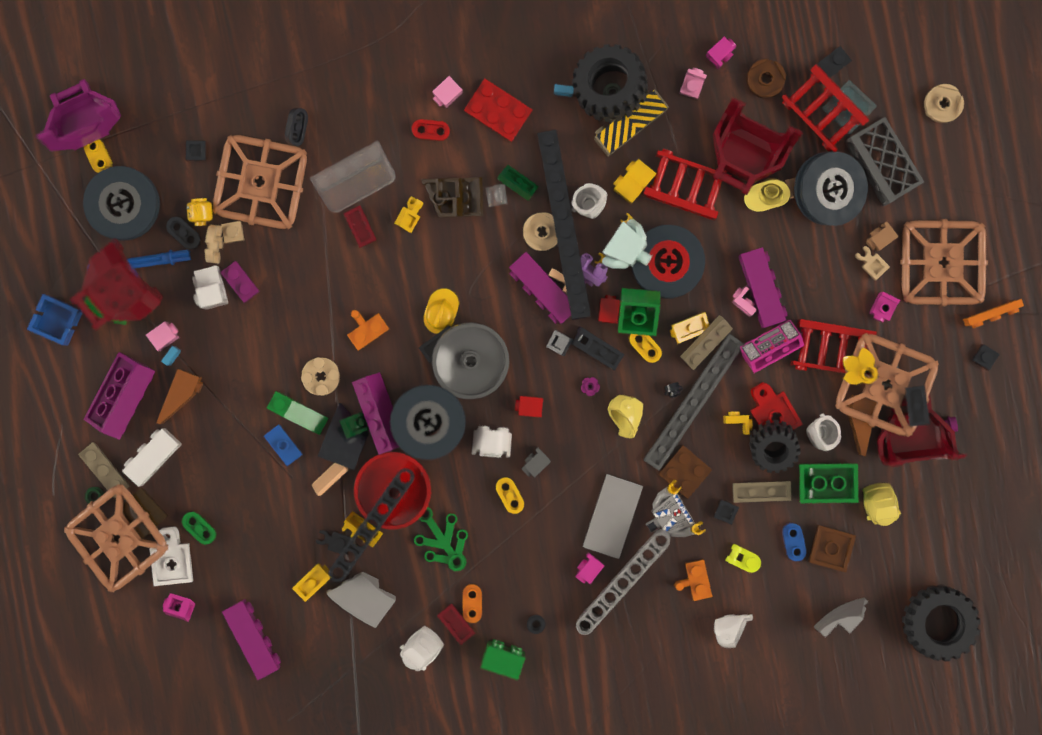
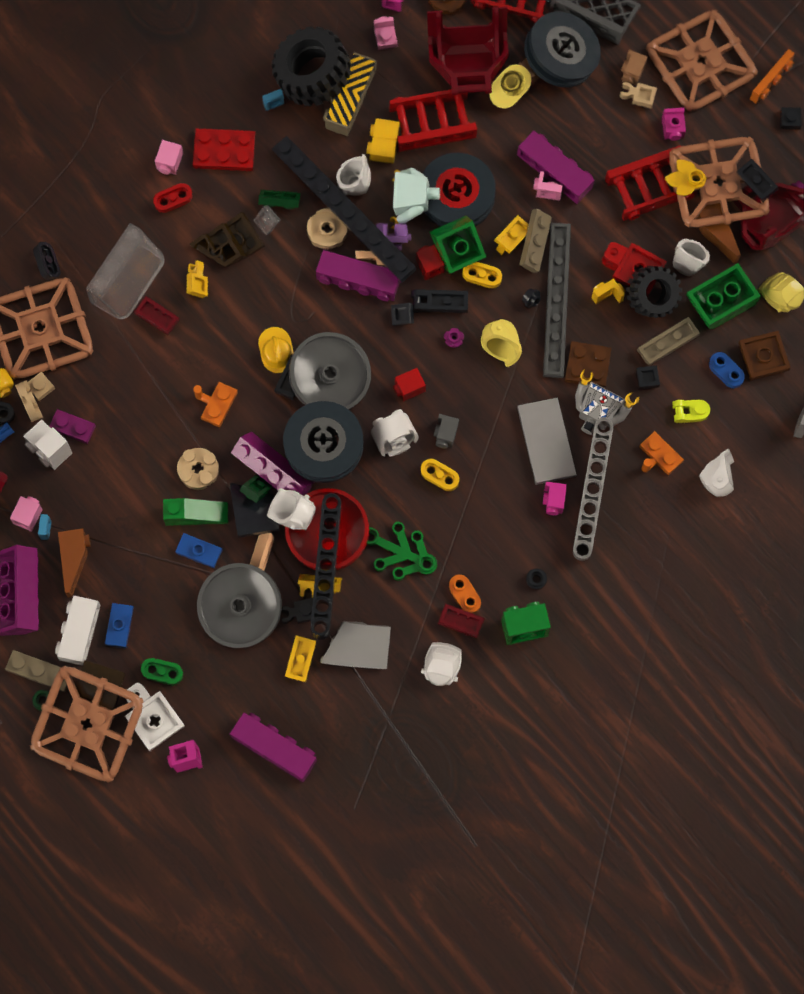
camera: 30 degrees left, 15 degrees down
(186, 470) = (119, 625): none -> blue plate
(287, 512) = (239, 605): none -> dark grey dish
(370, 462) = (292, 509): none -> white helmet
(772, 346) = (596, 209): brick -> none

